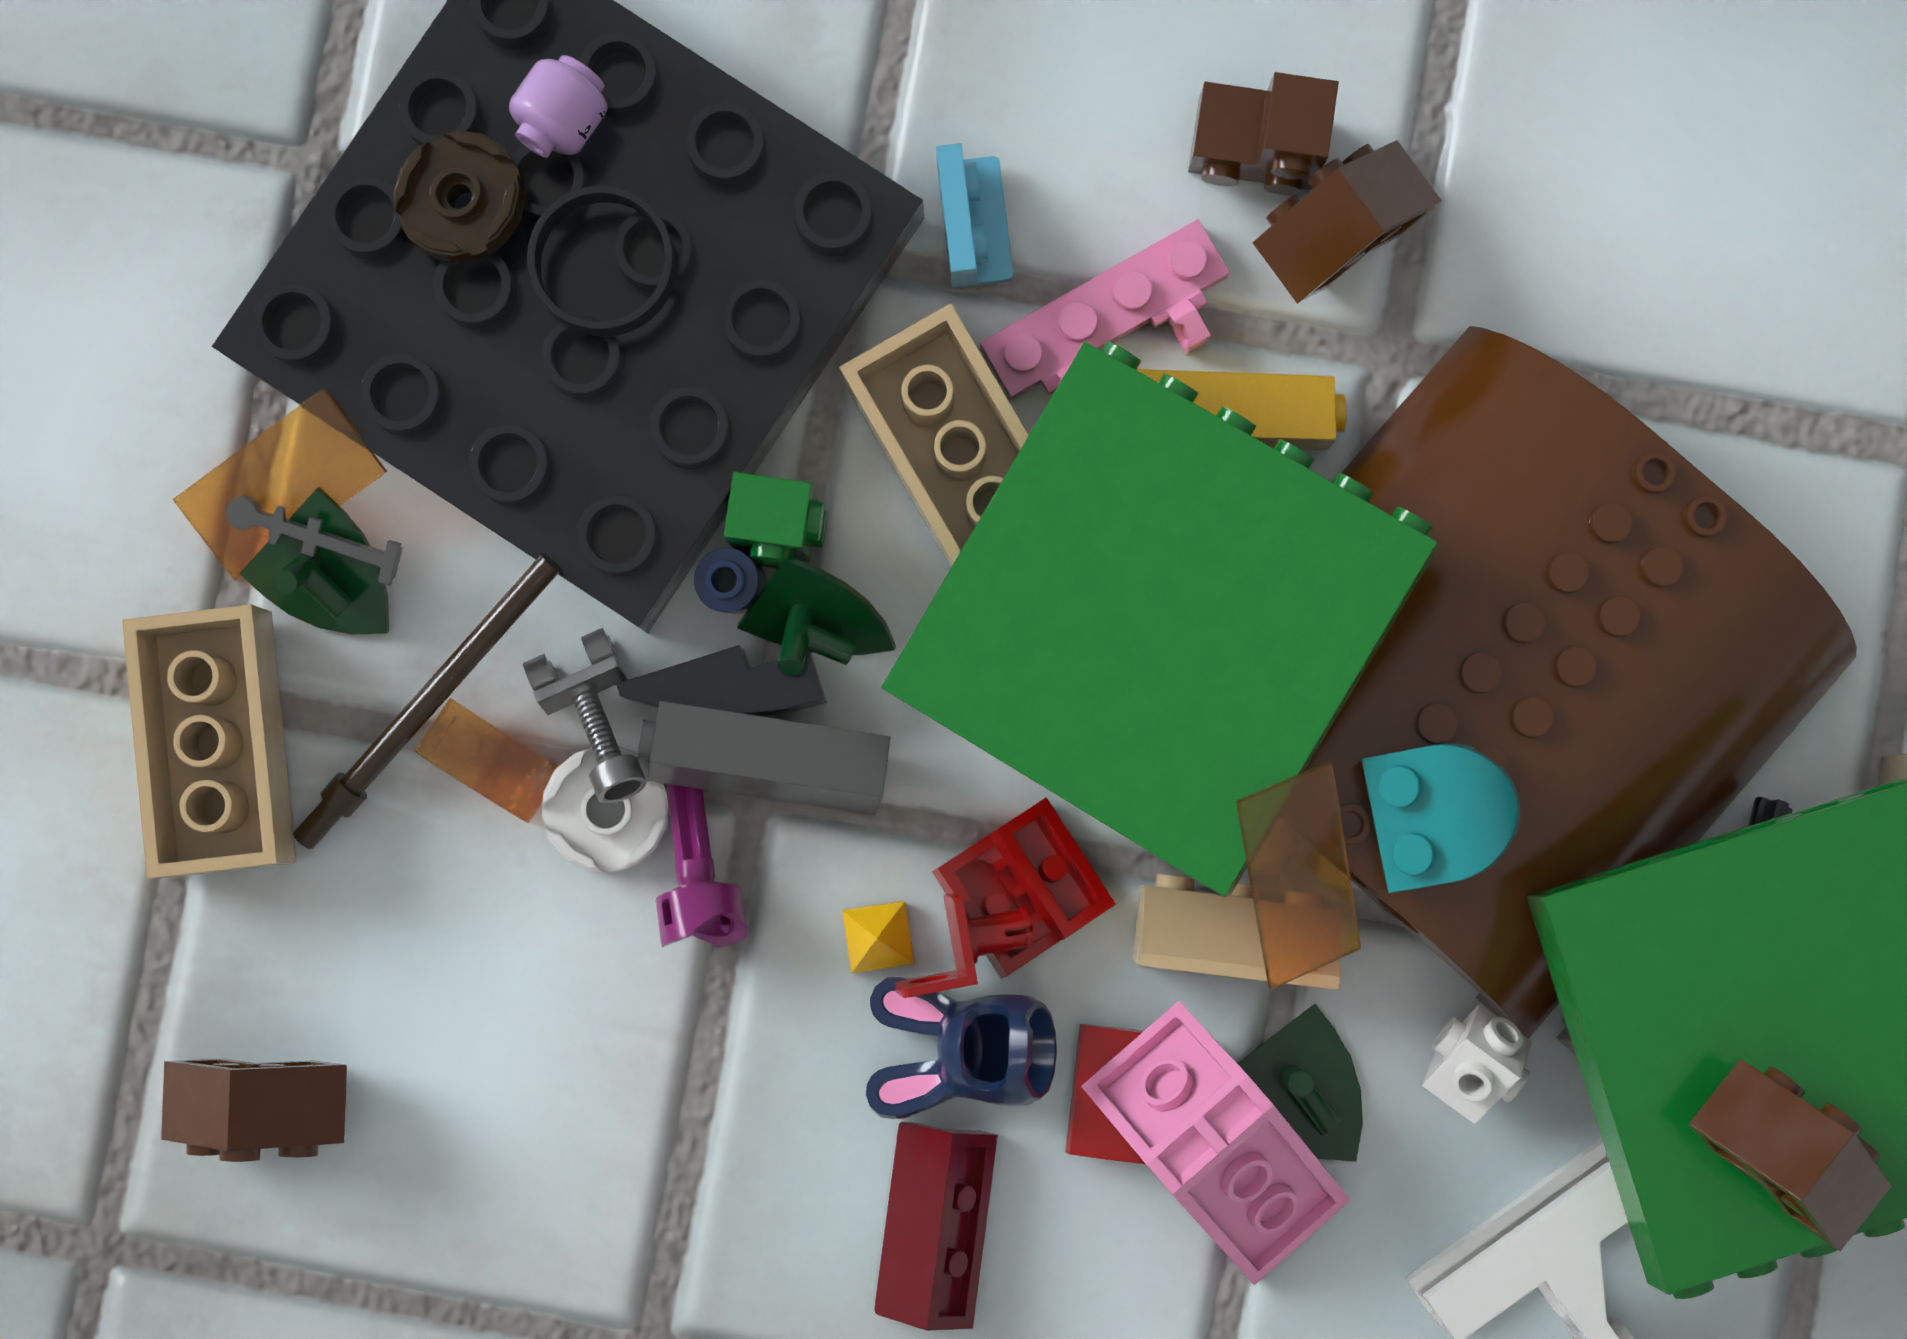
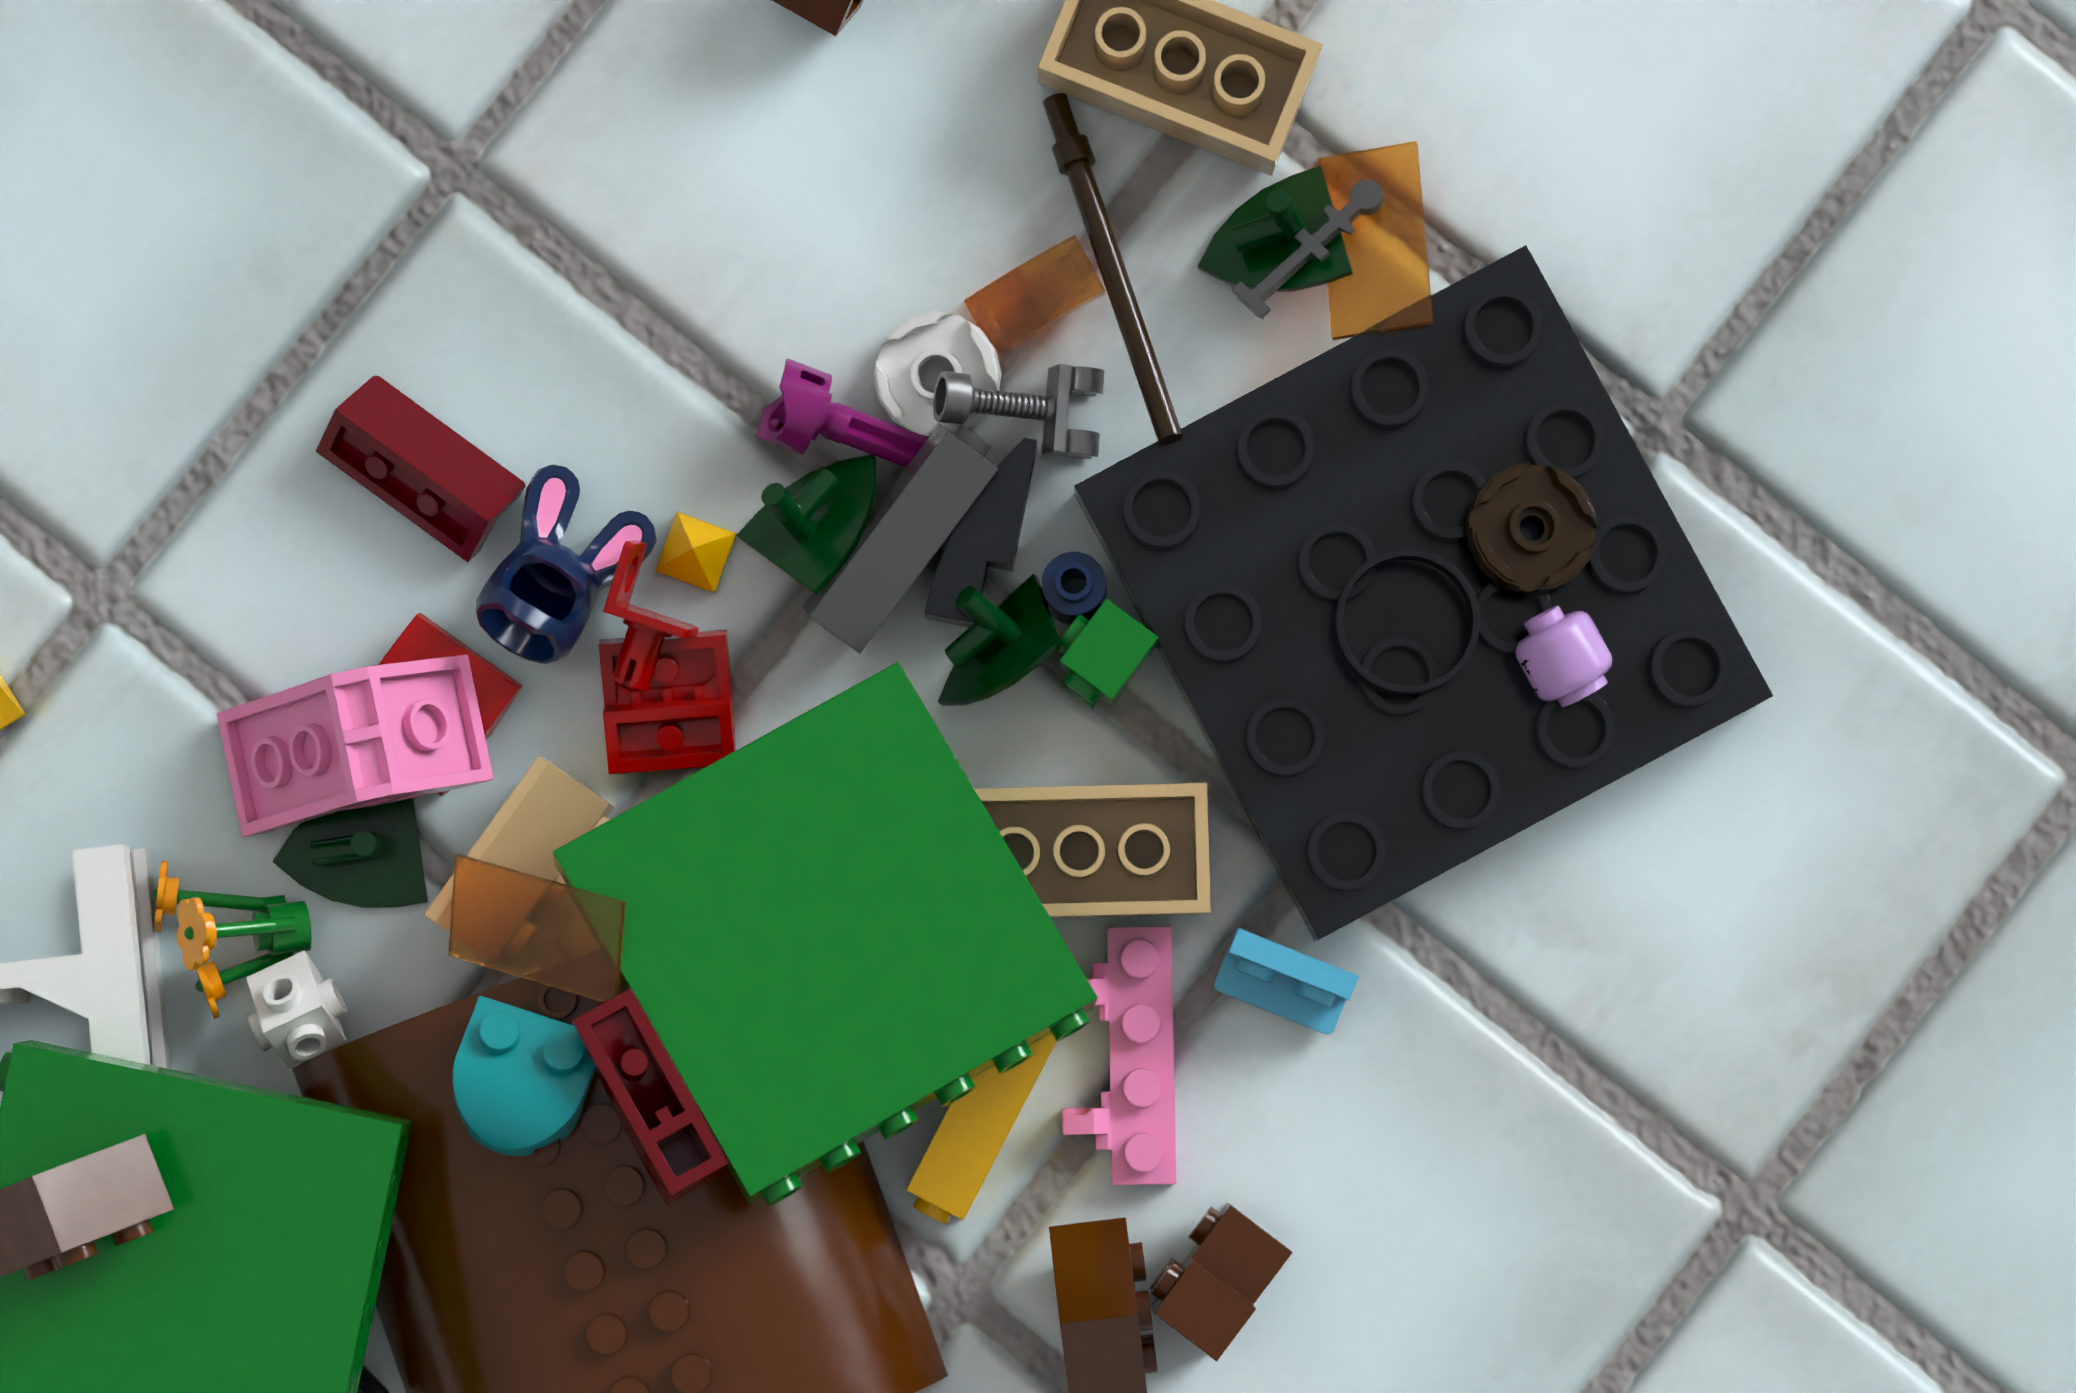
camera: 120 degrees right, 0 degrees up
(794, 842) = (815, 520): none -> dark green shield
(1396, 684) = (650, 1097): none -> dark red slope
(1414, 1121) = (277, 928): none -> plant

